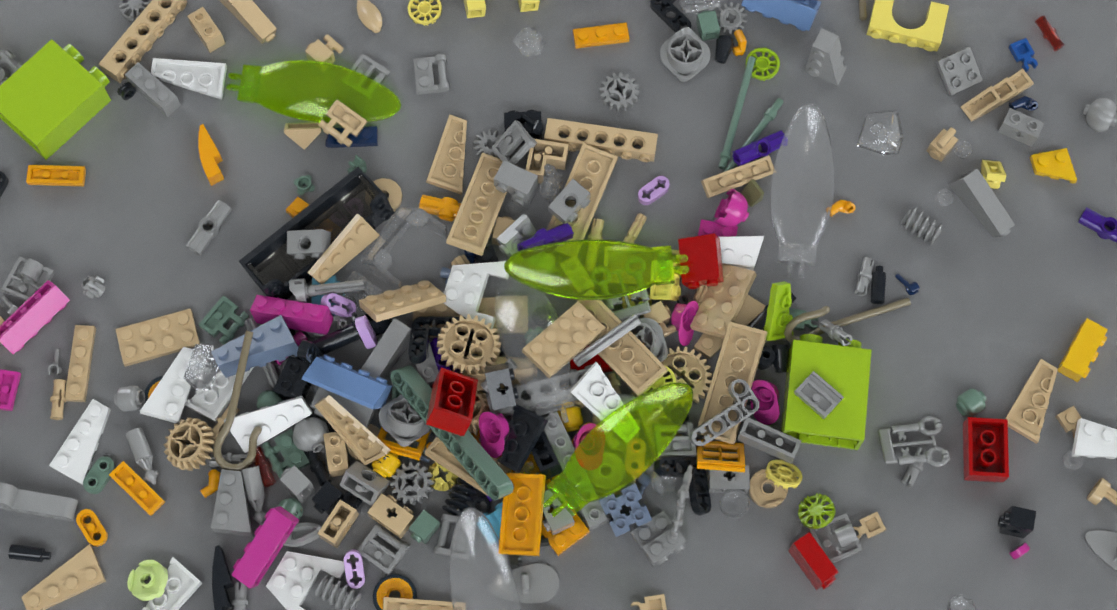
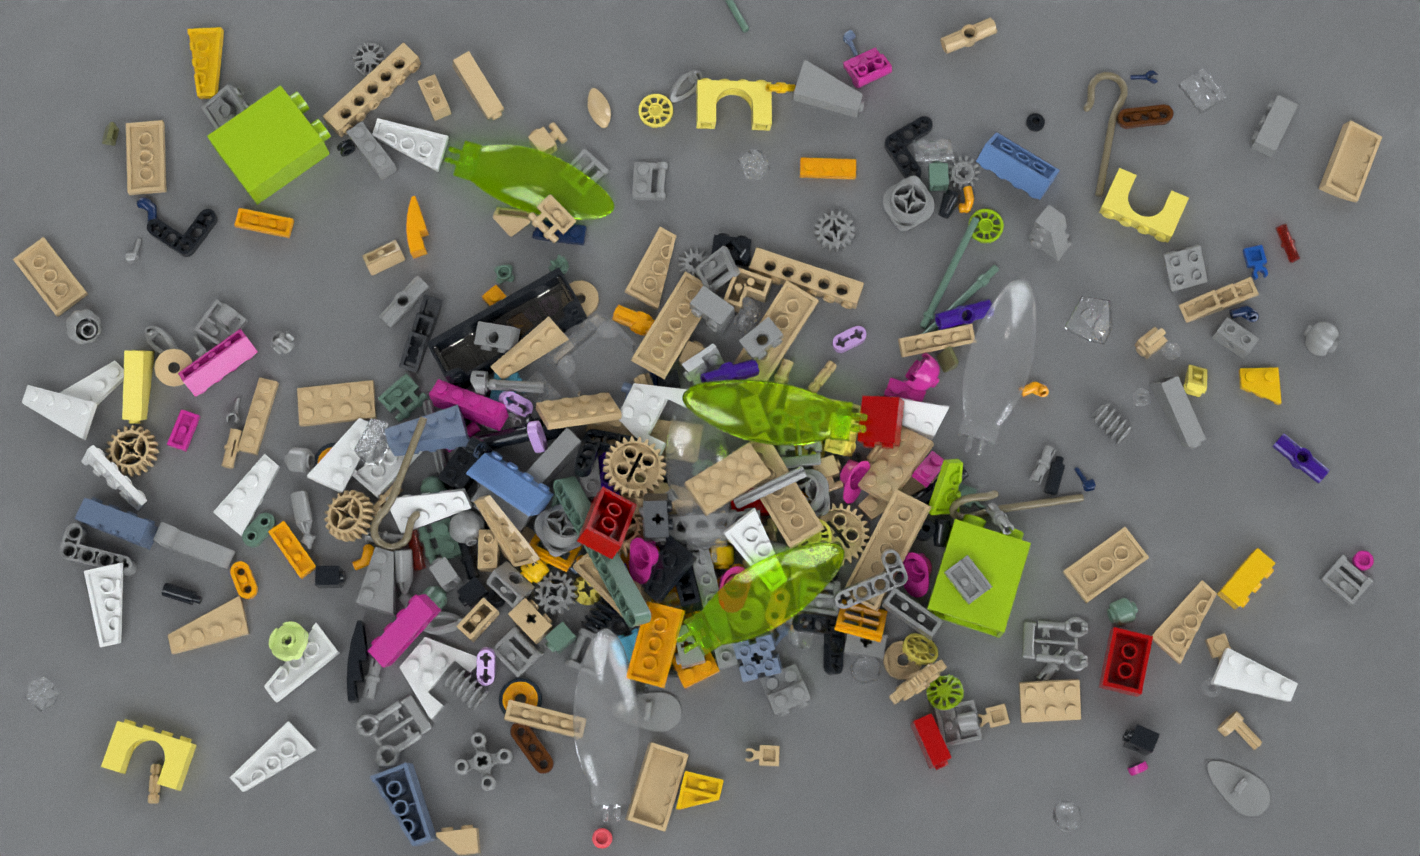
camera: 15 degrees right, 5 degrees up
(179, 508) = (329, 577): none -> black brick
(181, 189) = (383, 257): none -> tan slope
(231, 253) = (421, 333): none -> black slope
(683, 494) = (811, 663): light grey piece -> none
(756, 299) = (928, 469): none -> dark pink plate
(789, 504) = (917, 682): none -> tan gear
(920, 501) = (1050, 700): none -> tan plate
(945, 361) = (1105, 565): none -> tan plate

